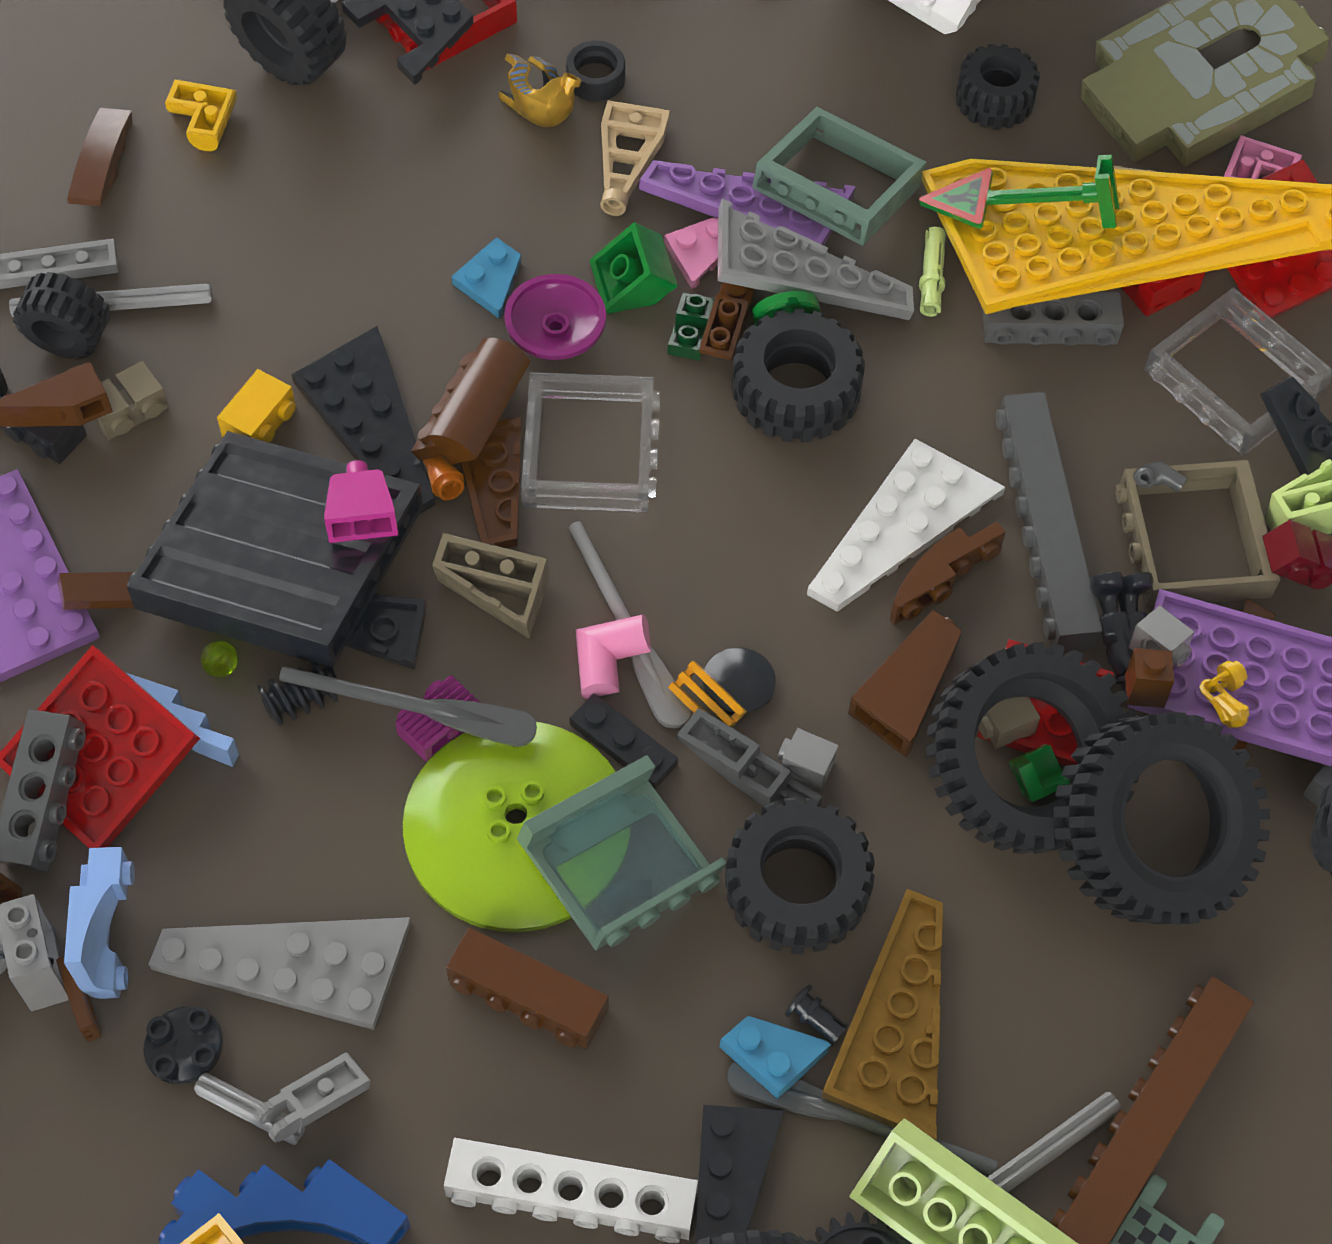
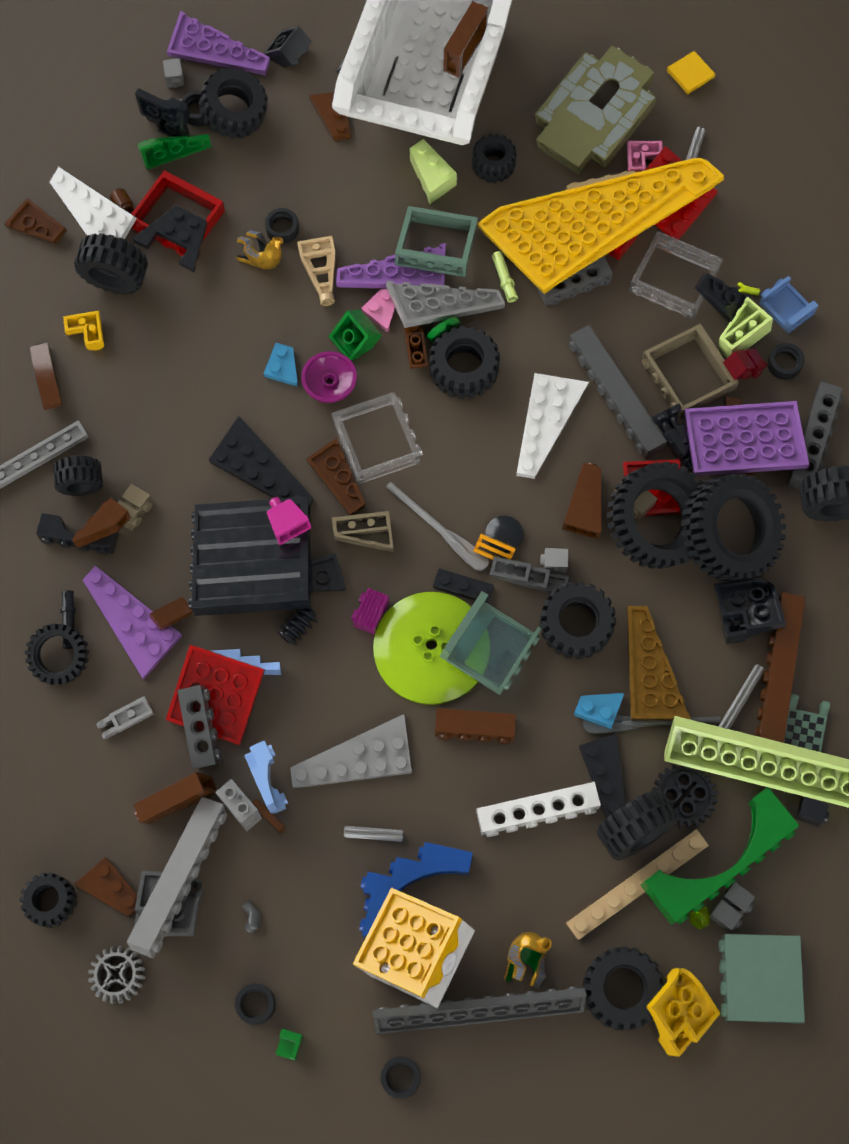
camera: 20 degrees left, 10 degrees up
(149, 297) = (105, 449): light grey axle -> none
(182, 1044) = (328, 817): black dish -> none
(219, 659) = (248, 623): clear neon green plate -> none
(258, 408) = (202, 486): yellow brick -> none
(313, 1096) = (402, 815): light grey hinge -> none
(444, 478) = (311, 484): orange cone -> none
(472, 402) = (310, 441): reddish brown brick -> none
(478, 719) = (391, 605): dark grey piece -> none
(600, 648) = (432, 543): bright pink brick -> none
(690, 326) = (397, 354): dark green slope -> none
(816, 1015) = (611, 682): black pin -> none
(884, 73) = (432, 171): none -> yellowish green wedge
(936, 570) = (576, 438): reddish brown slope -> none
(970, 196) = (509, 231): green piece -> none
(1037, 773) = (665, 524): green panel -> none
(1131, 981) = (747, 608): none -> black slope
(1149, 678) = (701, 459): reddish brown brick -> none
(1157, 474) = (661, 348): dark grey arm -> none
(1163, 632) = (699, 437): light grey brick -> none
(1229, 710) = (744, 461): yellow piece -> none

